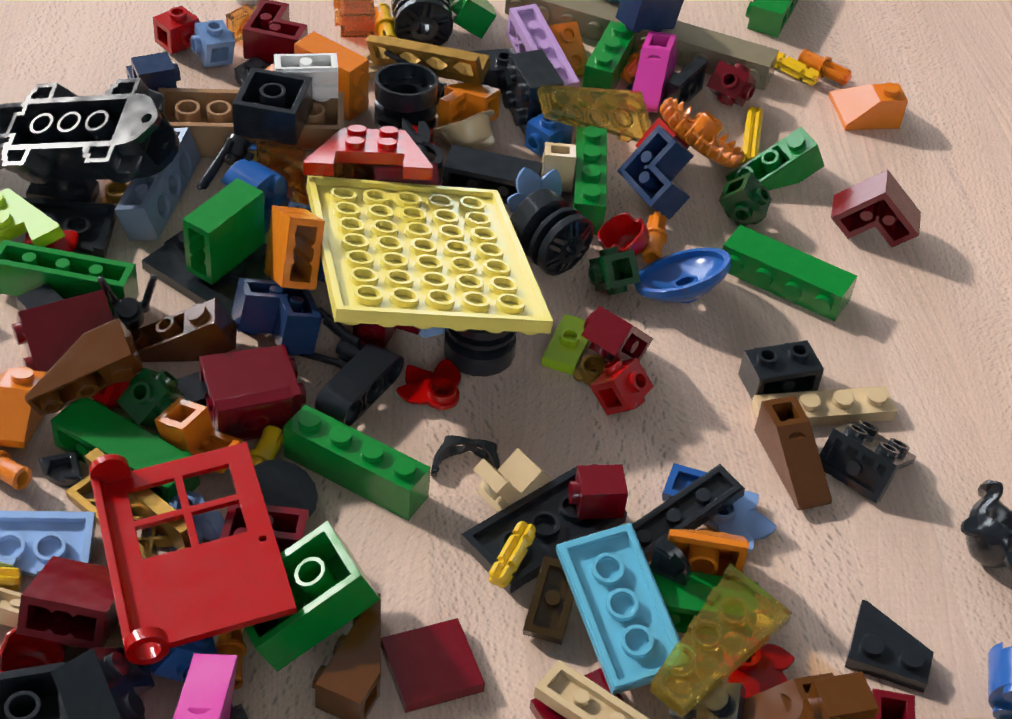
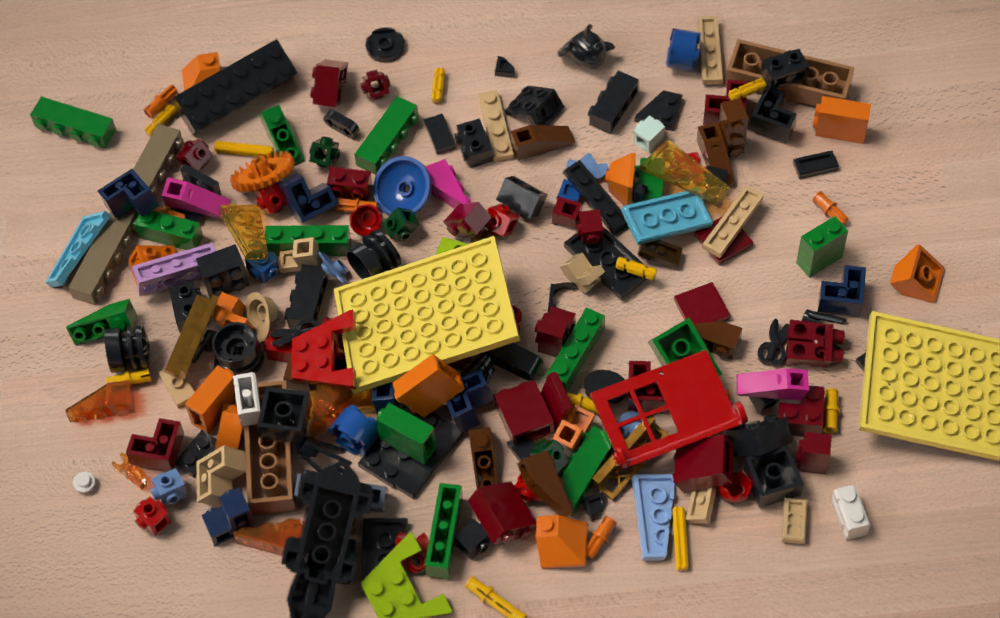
camera: 85 degrees left, 15 degrees up
(129, 309) = (472, 482): black plant -> none
(216, 71) = (217, 472): none -> tan brick
(386, 417) = (554, 330): none -> dark red brick
(640, 482) = (566, 212): none -> dark red brick
(668, 414) = (521, 197): none -> black brick
(690, 222) = (350, 183): none -> dark red brick
(694, 330) = (445, 185): none -> dark pink slope
(804, 227) = (341, 123): none -> black beam
(815, 331) = (439, 133): none -> black tile
(824, 615) = (648, 133): none -> light aqua brick
(851, 116) = (234, 86): none -> black brick
(879, 260) = (380, 89): none -> dark red brick
(891, 568) = (613, 102): none -> black brick
(897, 342) = (438, 85): none -> yellow axle
(949, 428) = (504, 68): none -> black tile
(968, 289) = (385, 45): none -> black tile

